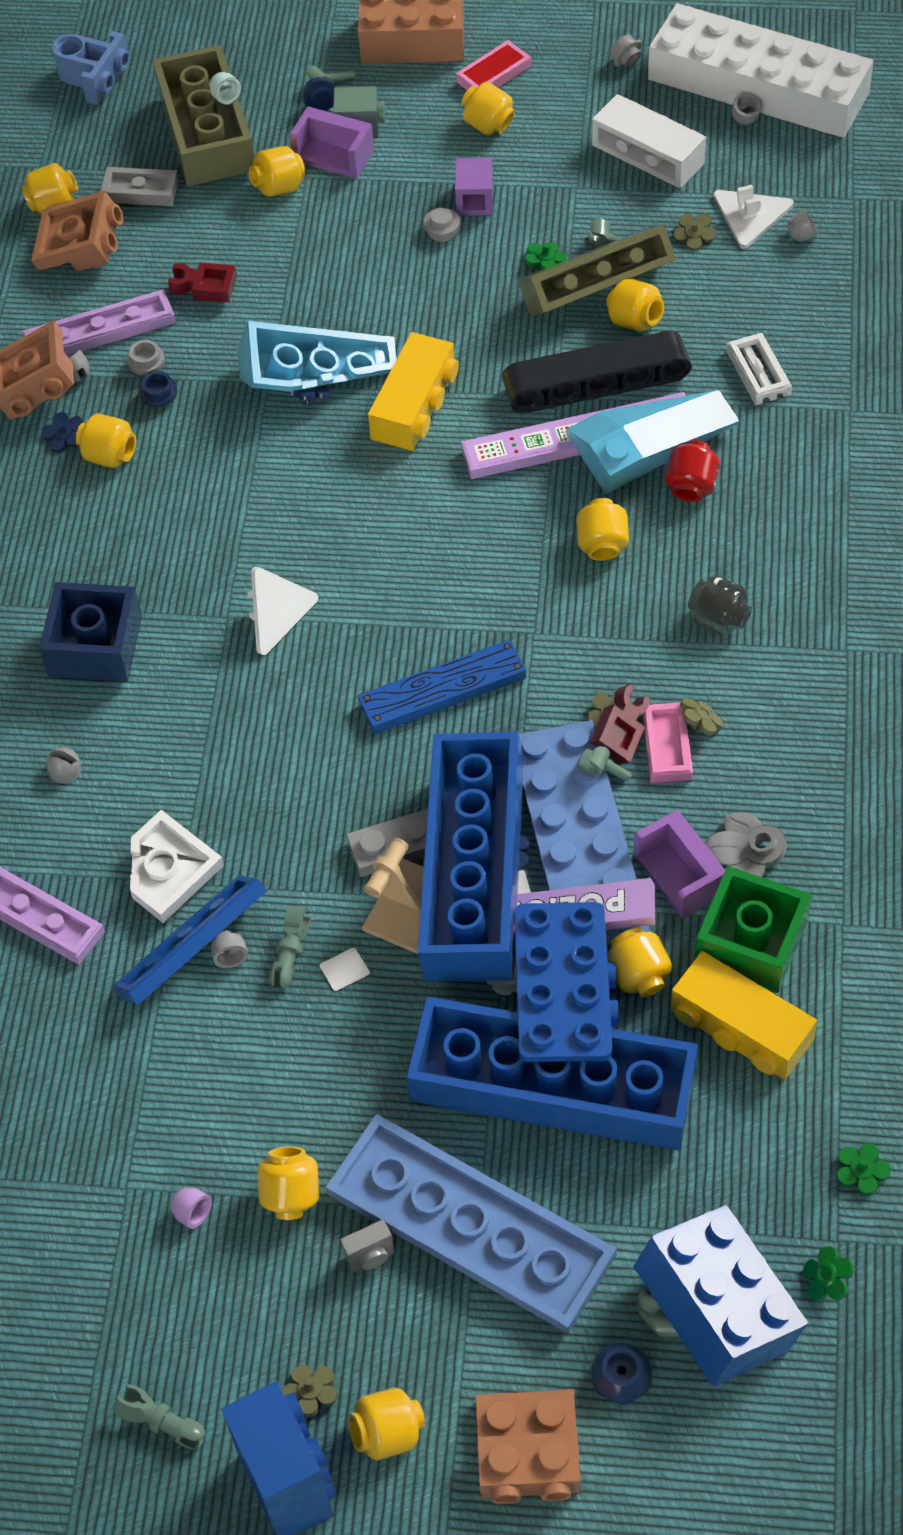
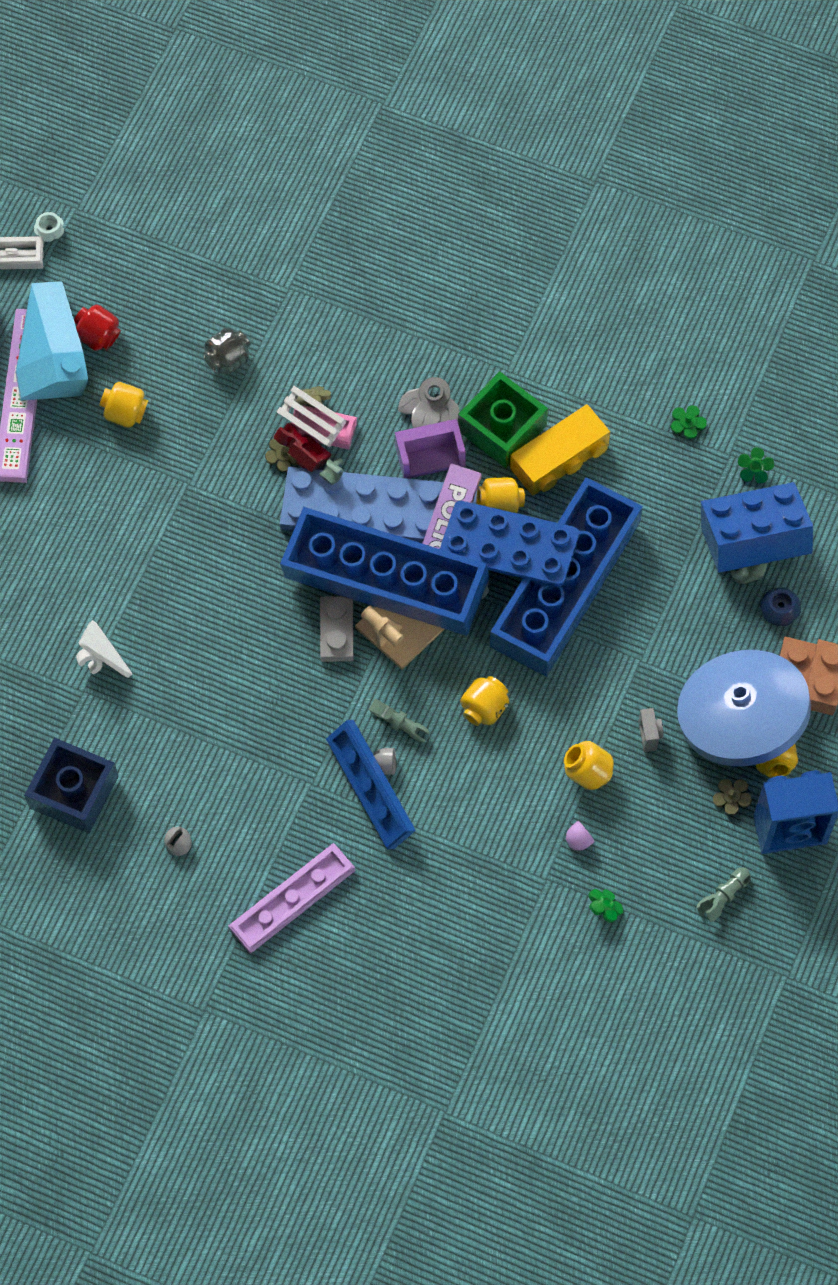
camera: 75 degrees left, 10 degrees up
(101, 1266) = (604, 903): none -> green plant
(168, 865) = (300, 785): white plate -> none
(344, 969) = (425, 691): white sticker -> none
(345, 1034) = (484, 701): none -> yellow head
(434, 1359) = (744, 708): none -> medium blue dish
(441, 686) = (214, 558): blue tile -> none
(472, 1223) = (649, 663): medium blue plate -> none
(658, 717) = (290, 402): none -> white tile
(807, 387) = (49, 220): none -> light aqua plate

